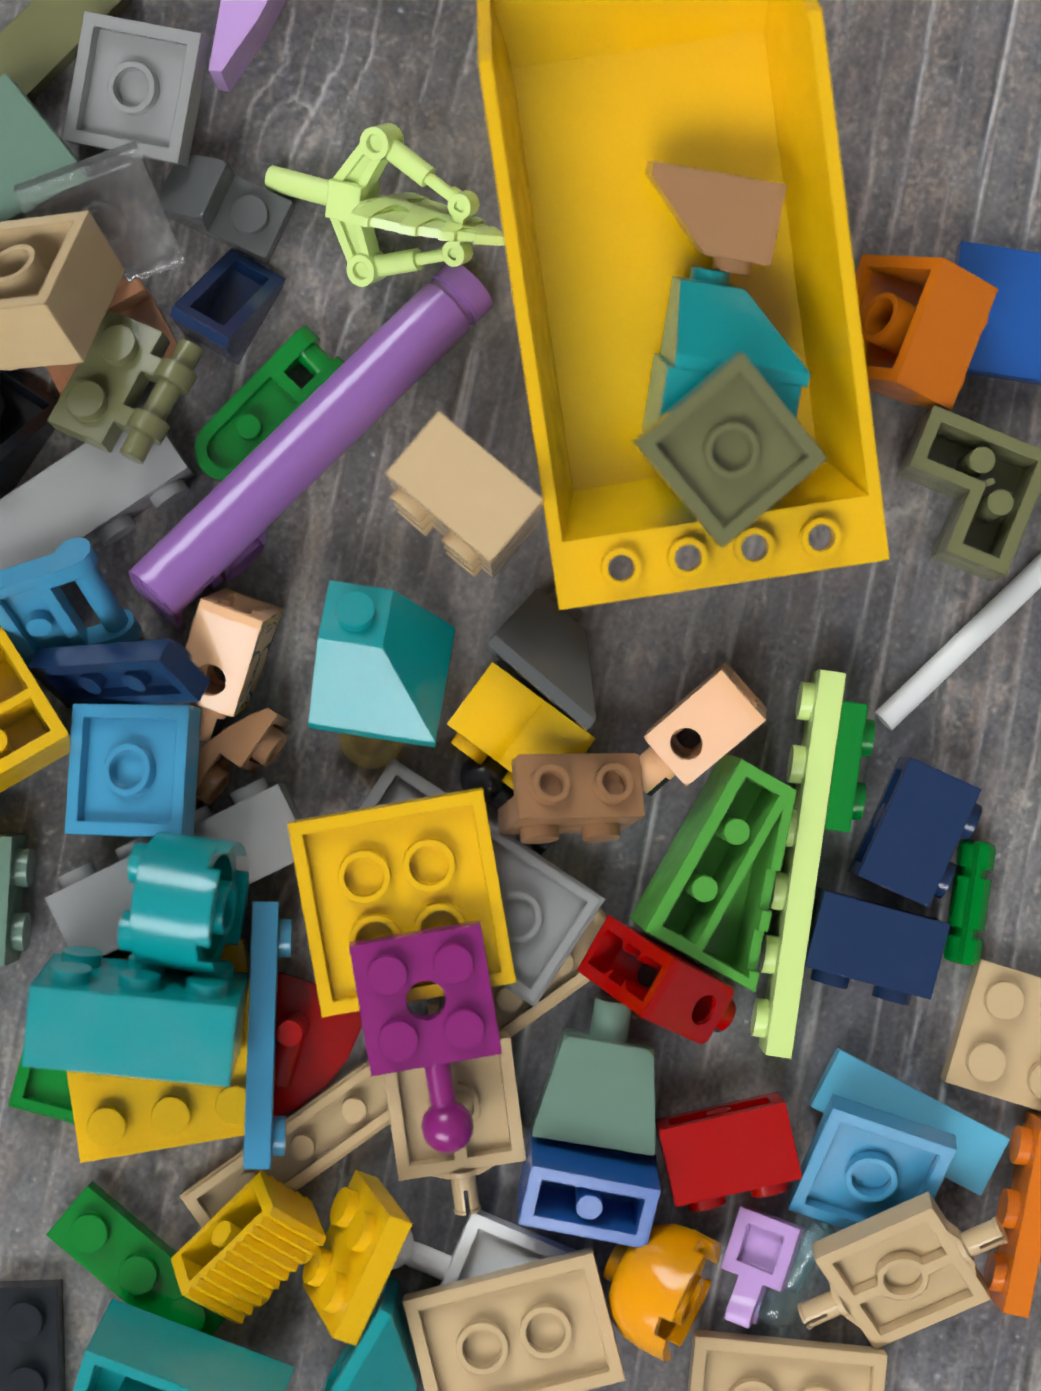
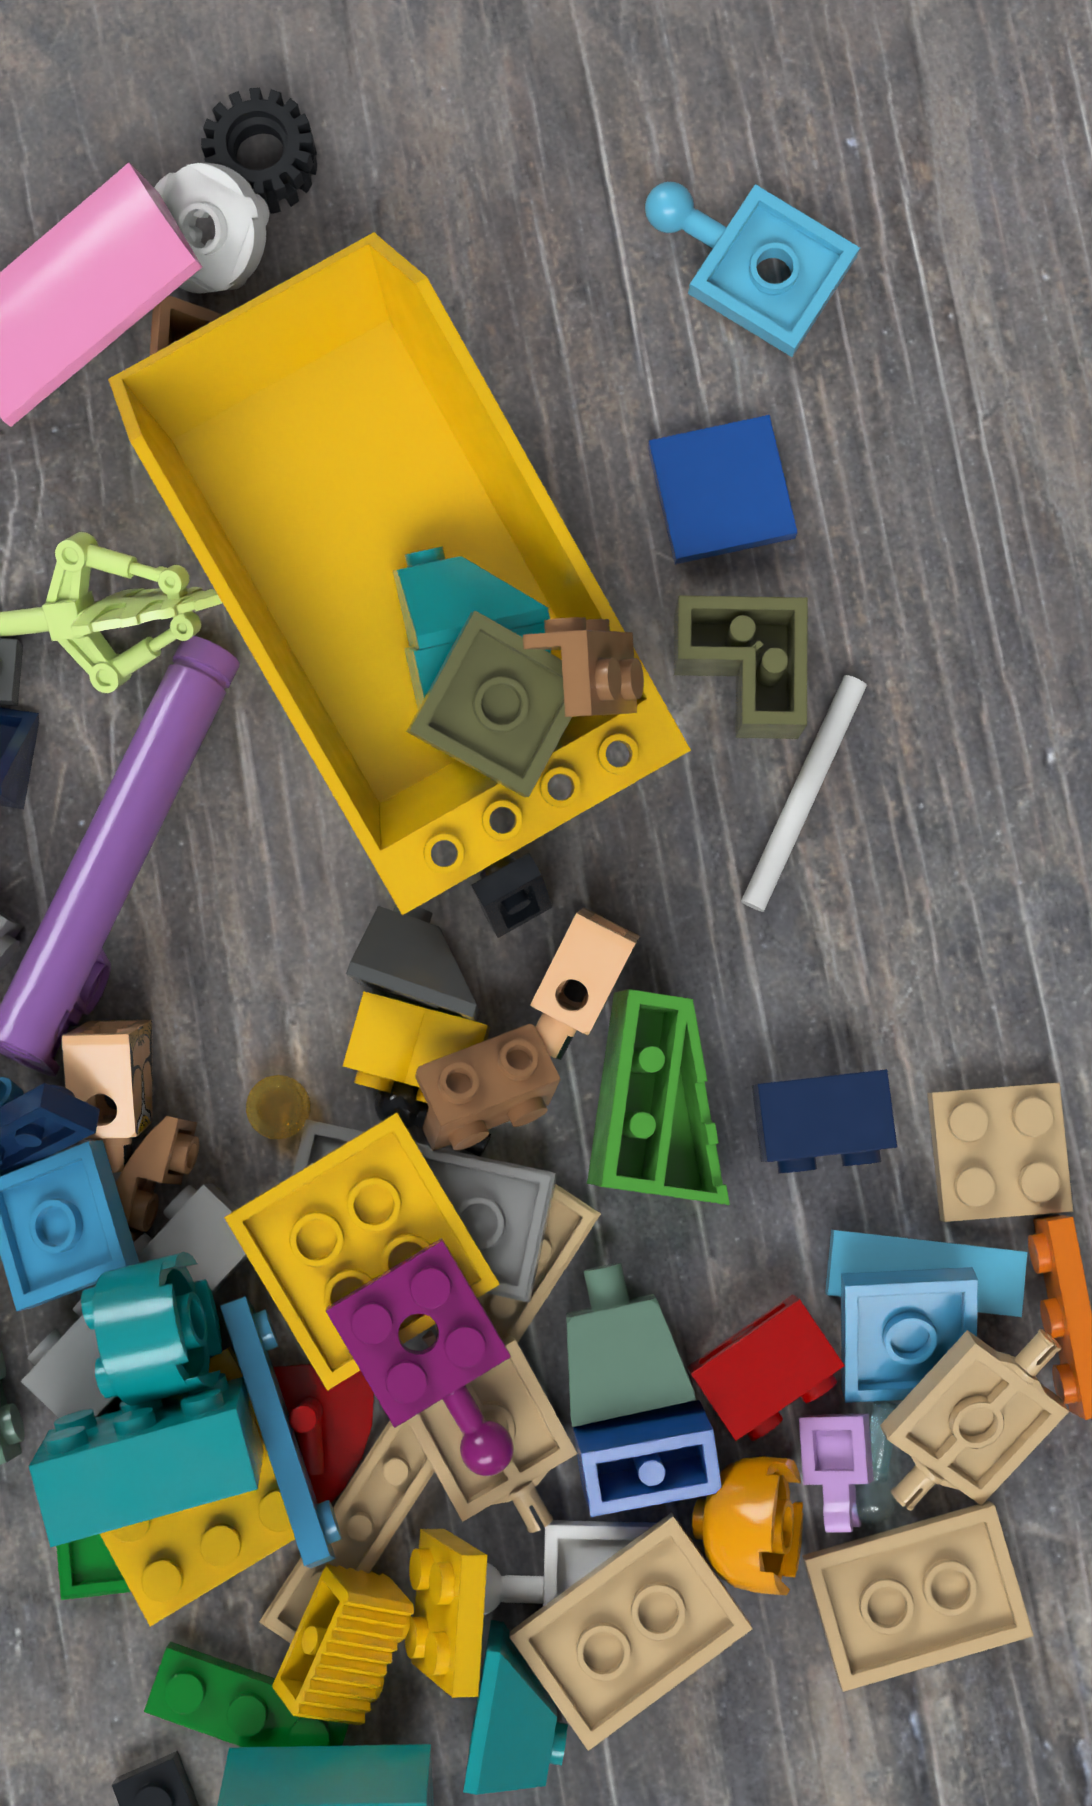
camera: 20 degrees left, 5 degrees down
(262, 404) = (56, 835): green plate -> none
(379, 666) = (258, 1036): teal slope -> none
(465, 496) = (275, 845): tan brick -> none
(666, 625) = (511, 893): none -> black plate
(681, 998) = (657, 1234): red torso -> none
(722, 213) = (412, 495): medium nougat slope -> none
(794, 888) = (729, 1094): yellowish green plate -> none
(838, 450) = (596, 665): none -> medium nougat bracket
(853, 741) = (726, 934): green plate -> none
(917, 831) = (823, 995): dark blue brick -> none
(920, 326) = (637, 531): orange slope -> none
(969, 902) = (900, 1043): green axle -> none

